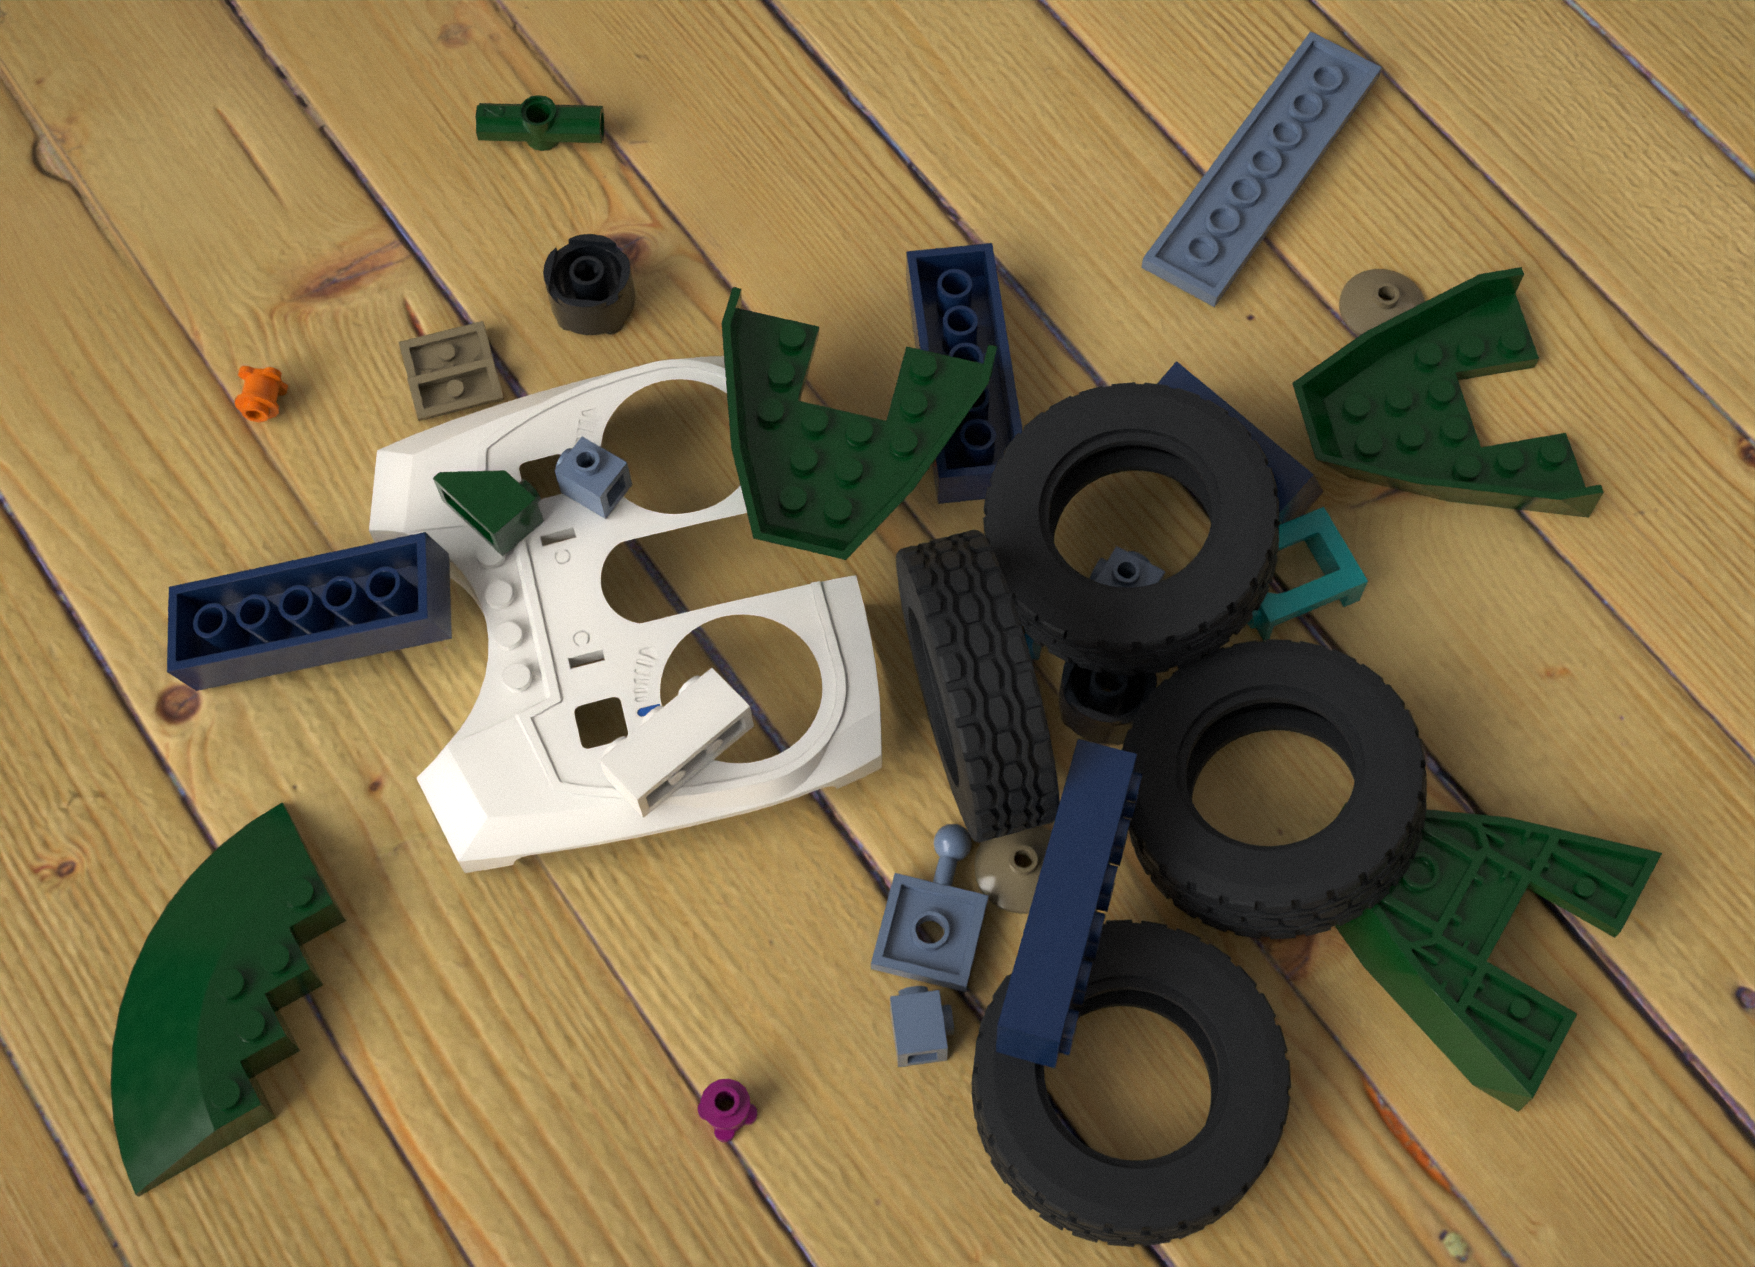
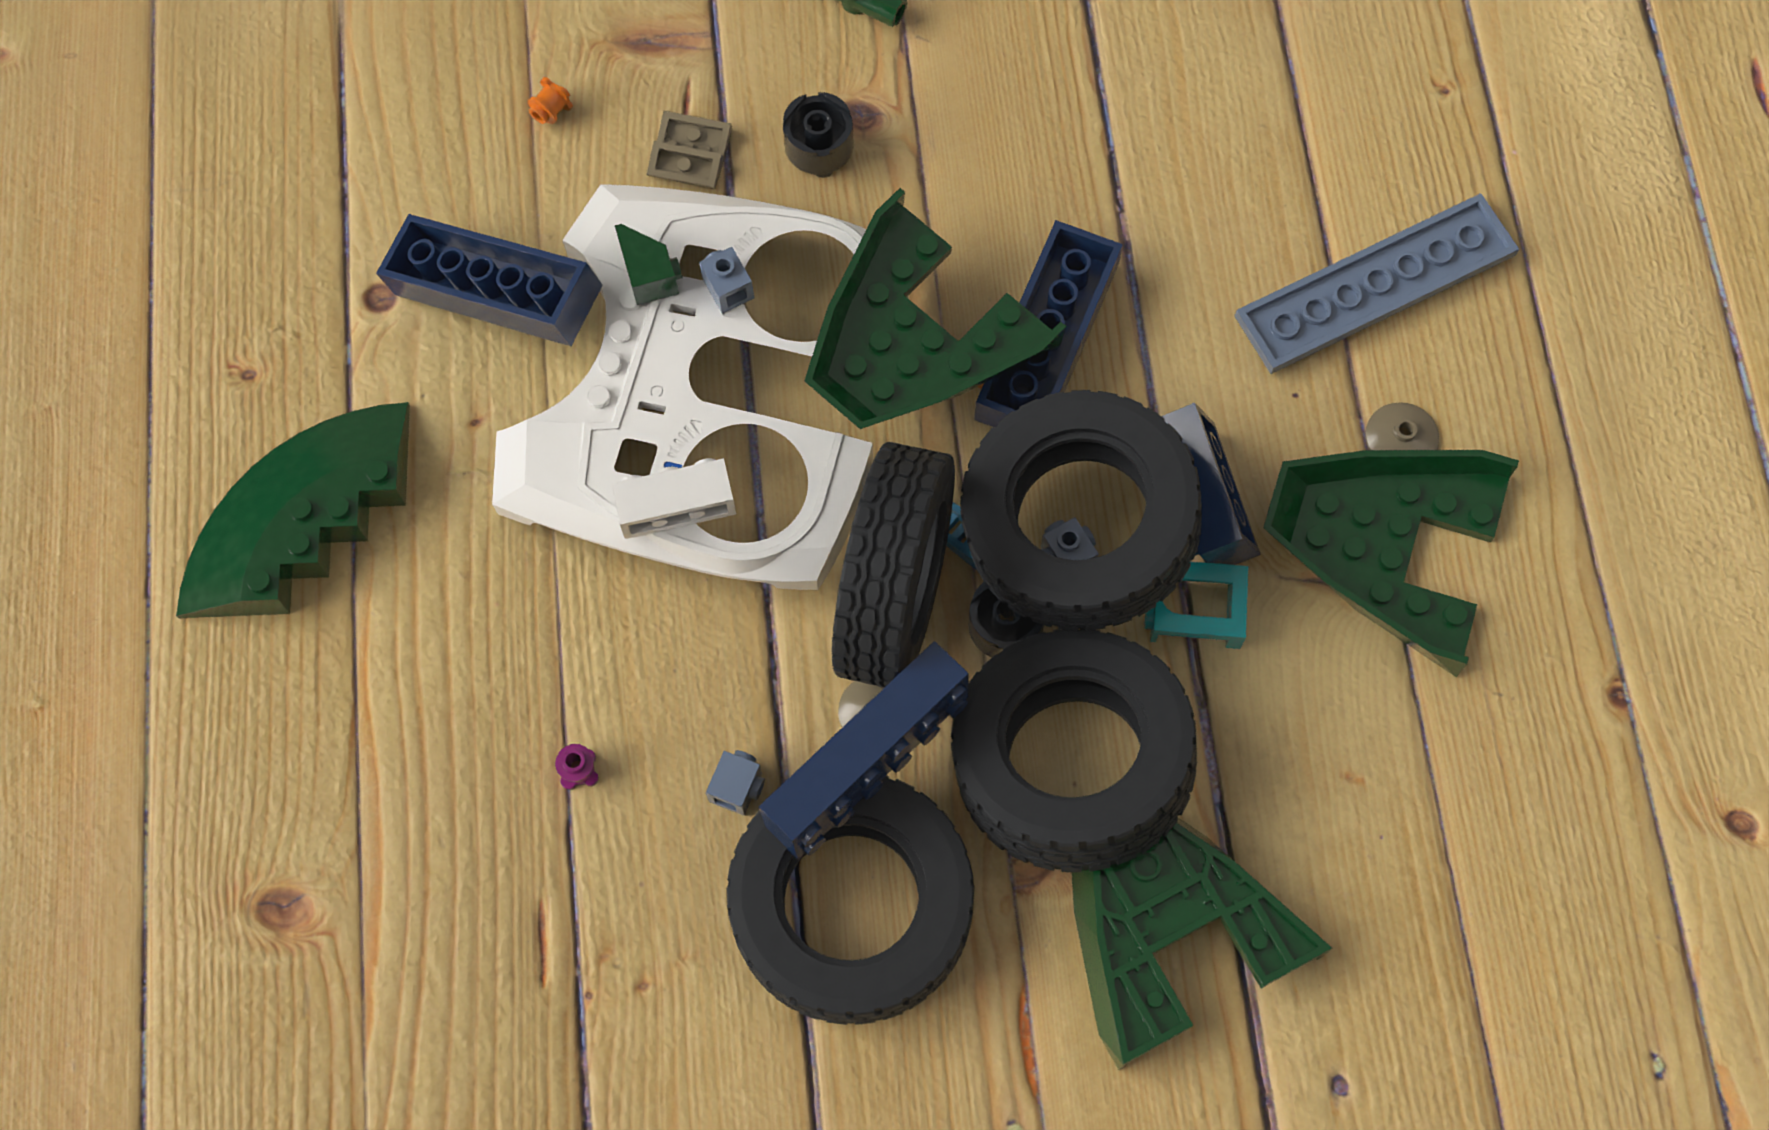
camera: 30 degrees right, 5 degrees up
(918, 901) = (787, 696): sand blue plate -> none

